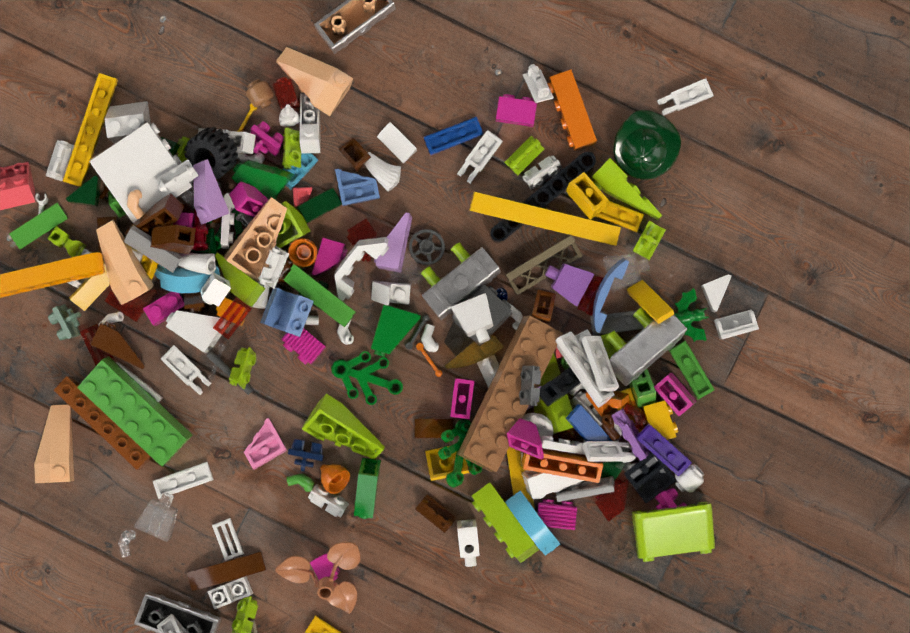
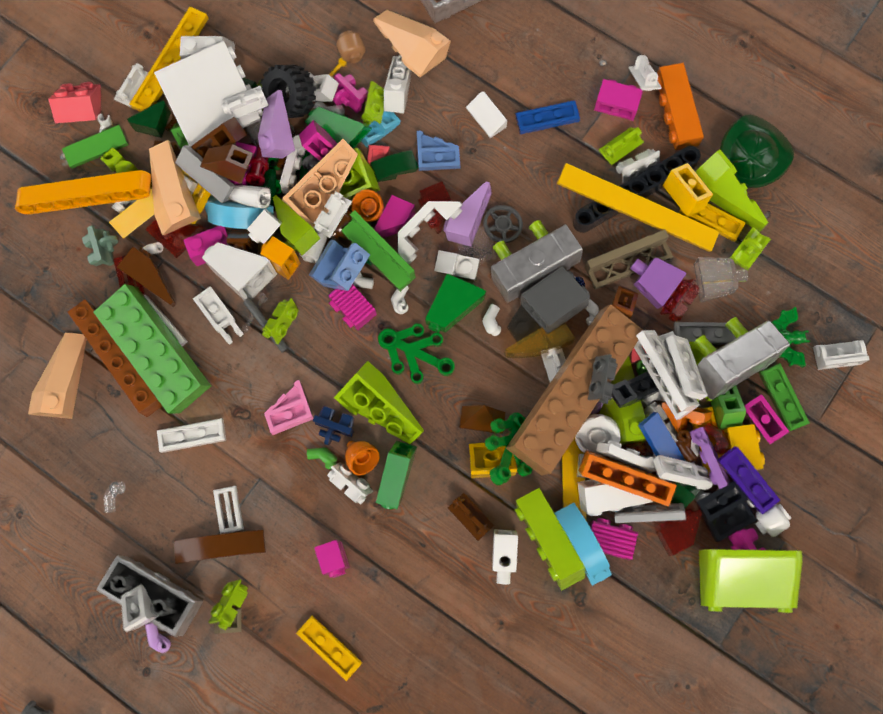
camera: 10 degrees right, 10 degrees down
(132, 203) = (193, 119): light nougat arm -> none
(158, 518) = (154, 472): clear torso -> none
(227, 312) = (270, 252): clear red tile -> none
(230, 592) = (218, 572): white slope -> none
(286, 93) = (377, 48): clear red slope -> none
(288, 117) = (377, 71): white piece -> none
(340, 595) = (355, 544): nougat plant -> none
(355, 154) = (440, 120): reddish brown slope -> none
(384, 173) = (469, 143): white piece -> none
(409, 345) = (468, 325): dark grey hinge -> none
(438, 372) = (480, 329): orange hinge -> none
(462, 398) = (520, 388): dark pink brick -> none
(474, 317) = (547, 295): white torso -> none
(481, 154) = (574, 138): white hinge -> none
(525, 438) = (591, 439): dark pink slope -> none
(618, 271) = (686, 319): medium blue slope -> none
(650, 301) = (748, 311): yellow tile -> none
(687, 96) = (803, 110): white hinge -> none
(715, 291) = (819, 313): white slope -> none

